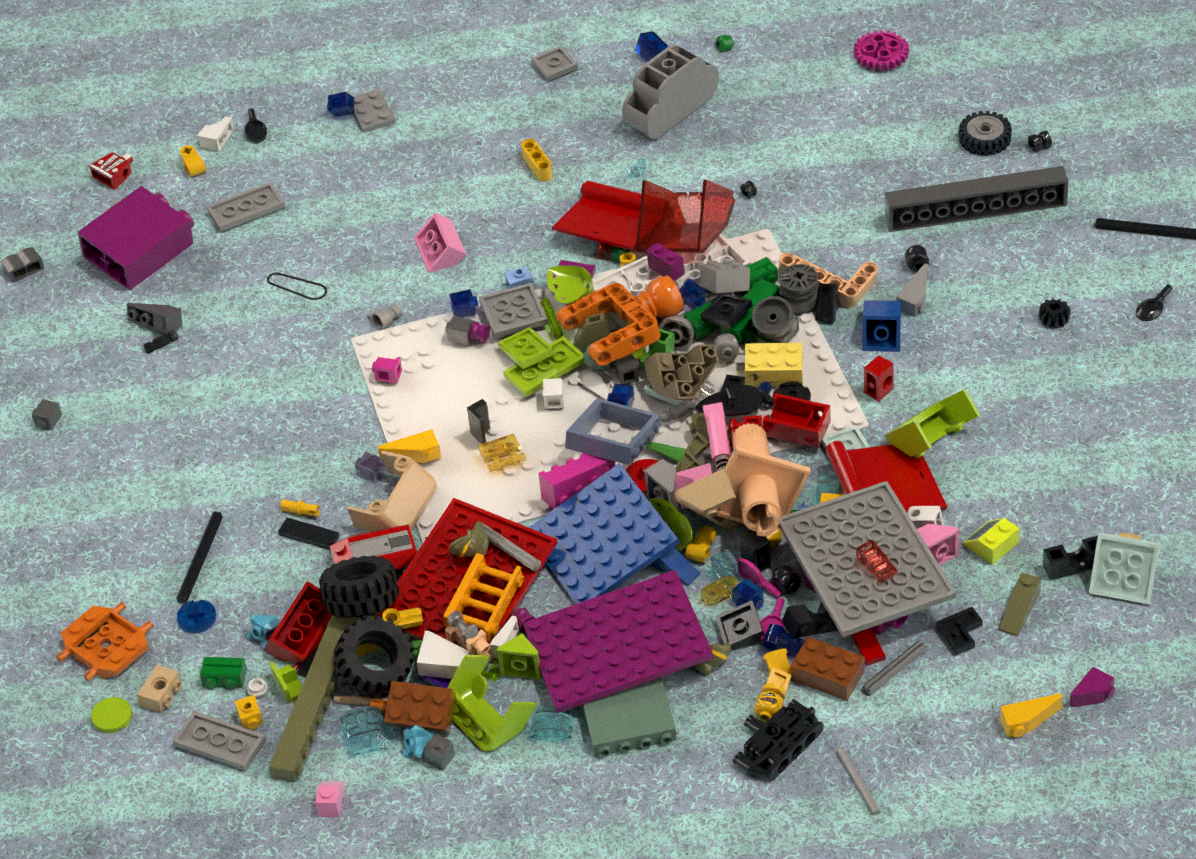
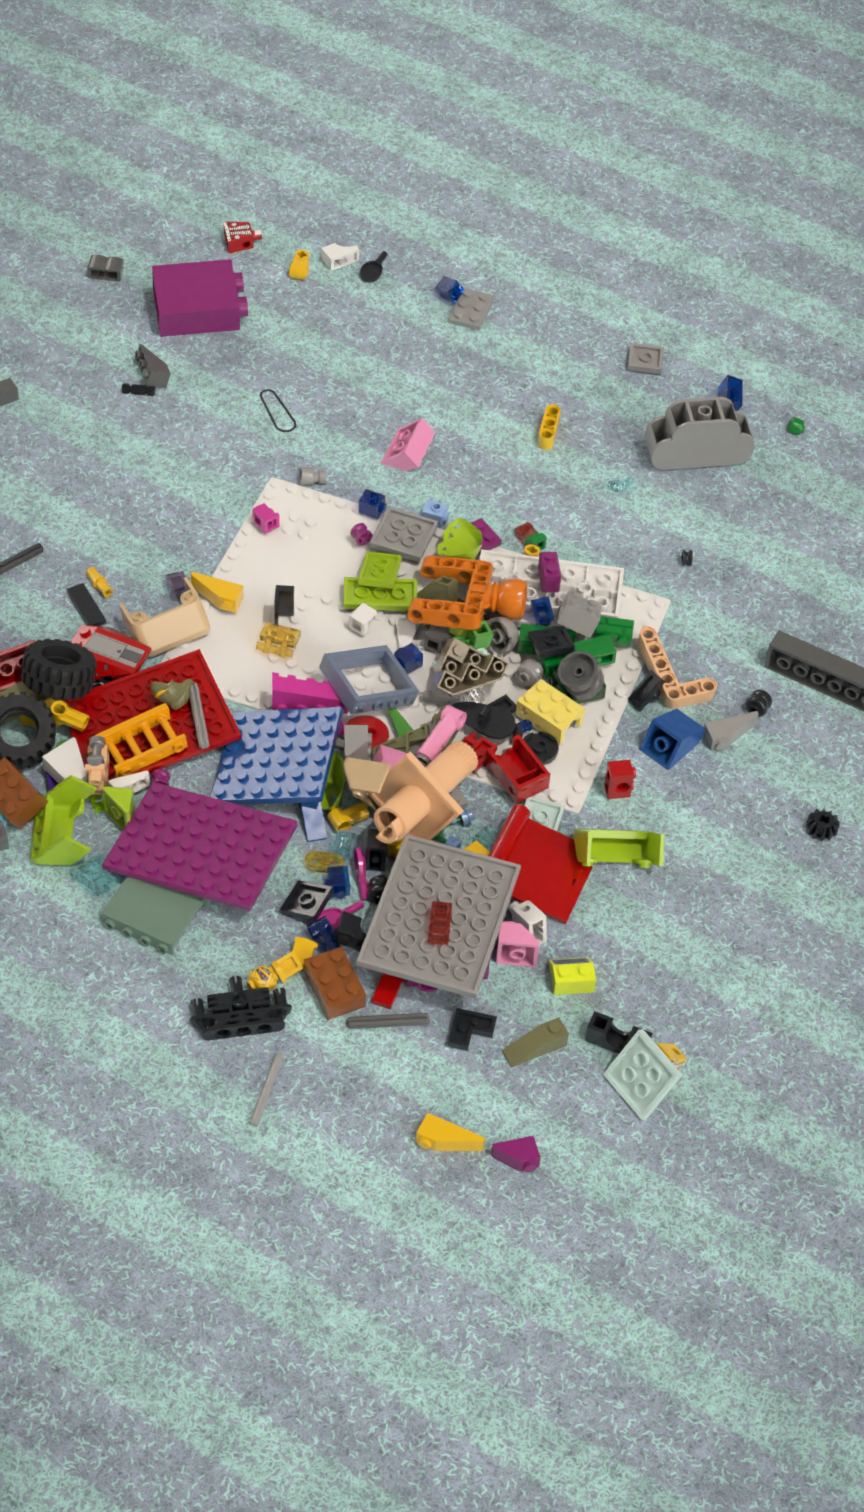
camera: 30 degrees right, 5 degrees up
(245, 206) = (302, 325): light grey plate -> none
(458, 330) = (346, 521): flat silver brick -> none
(551, 317) = (430, 551): clear neon green axle -> none
(603, 215) = (556, 509): red door -> none
(681, 222) = (599, 544): clear red windscreen -> none
(720, 655) = (262, 910): olive hair -> none
(799, 287) = (632, 662): dark grey wheel -> none

